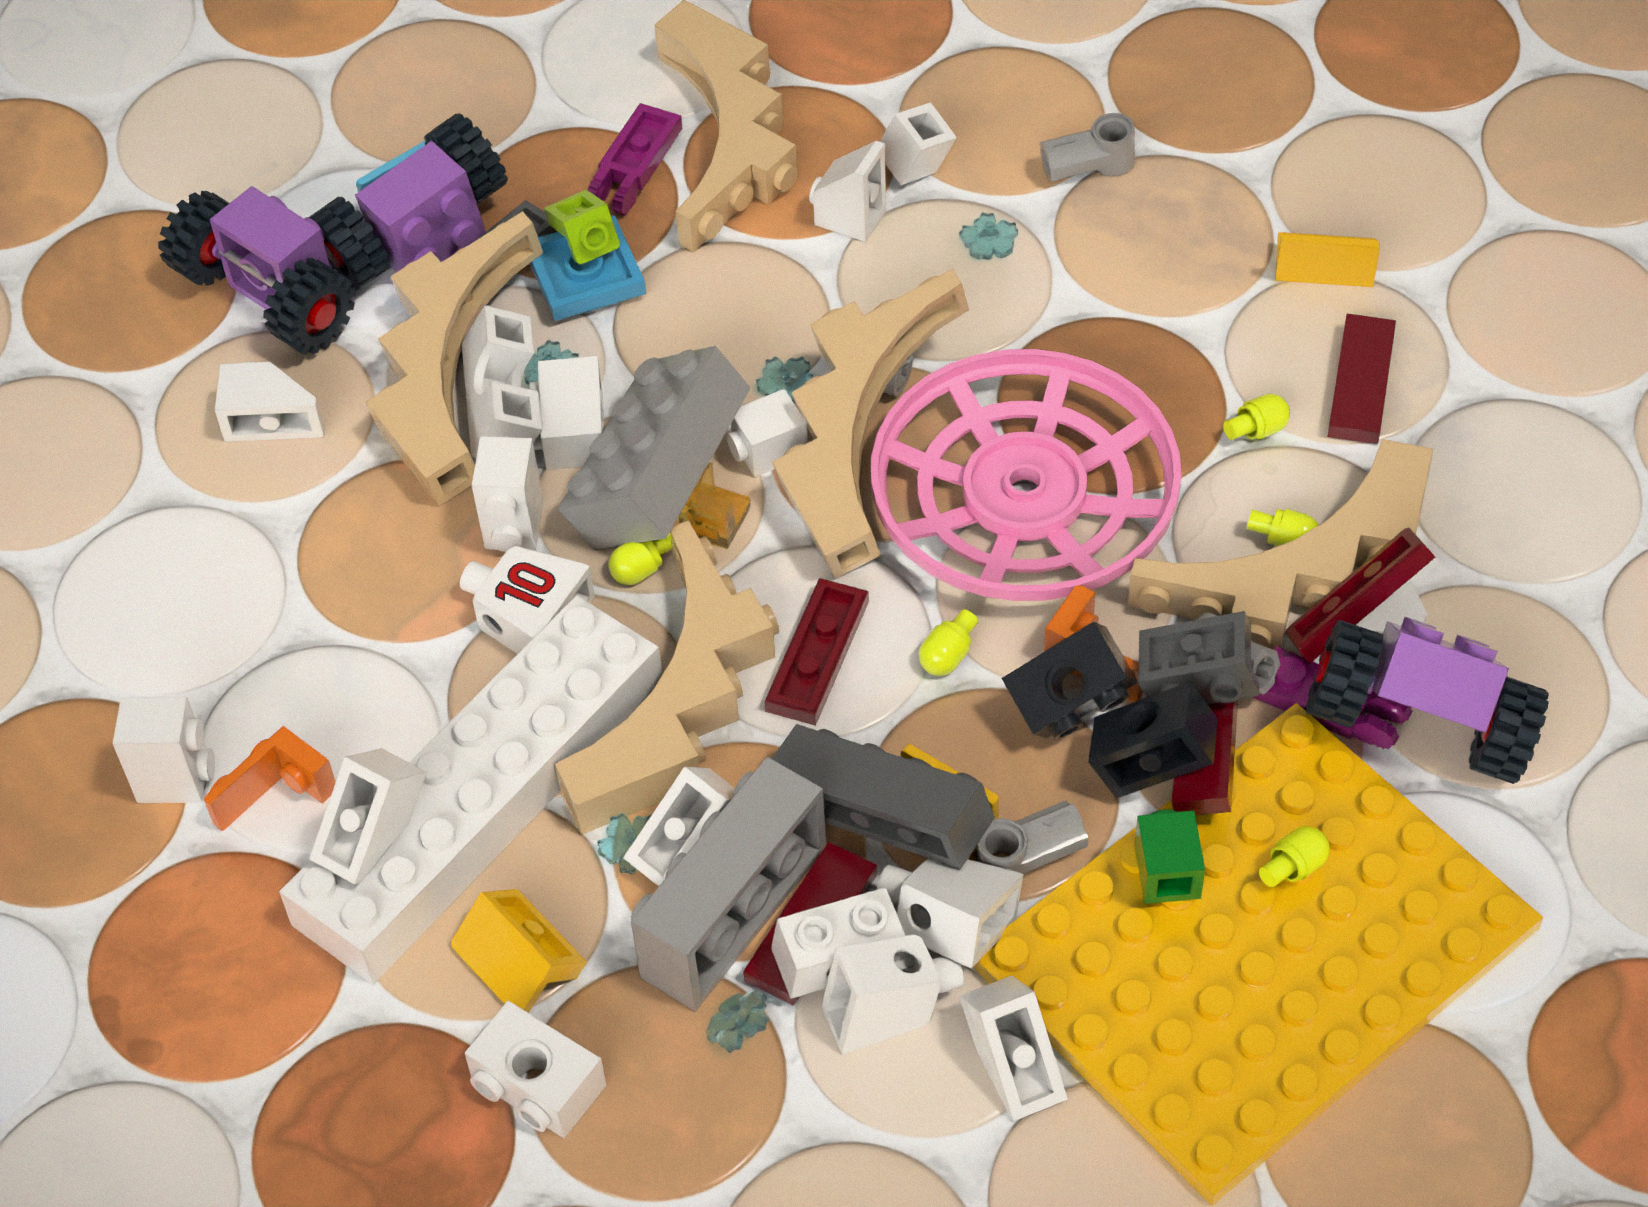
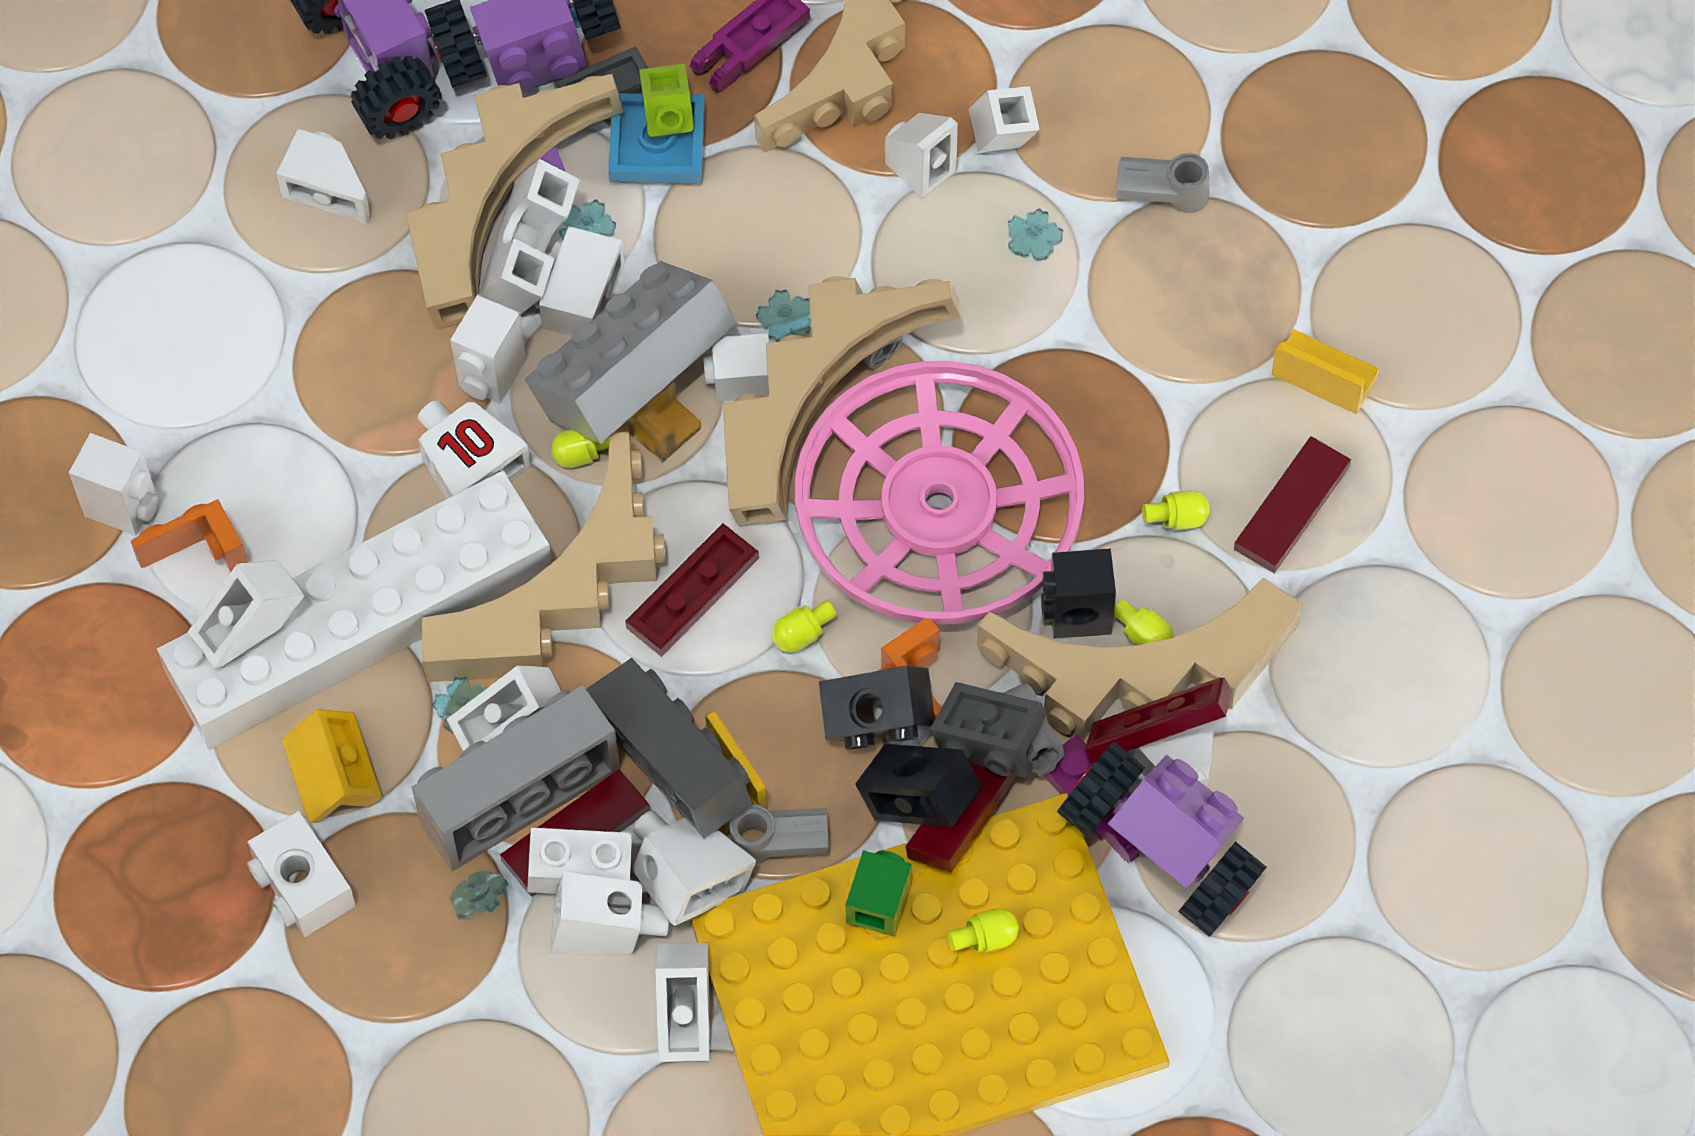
camera: 20 degrees right, 10 degrees up
(1216, 510) = (1079, 593): none -> black brick

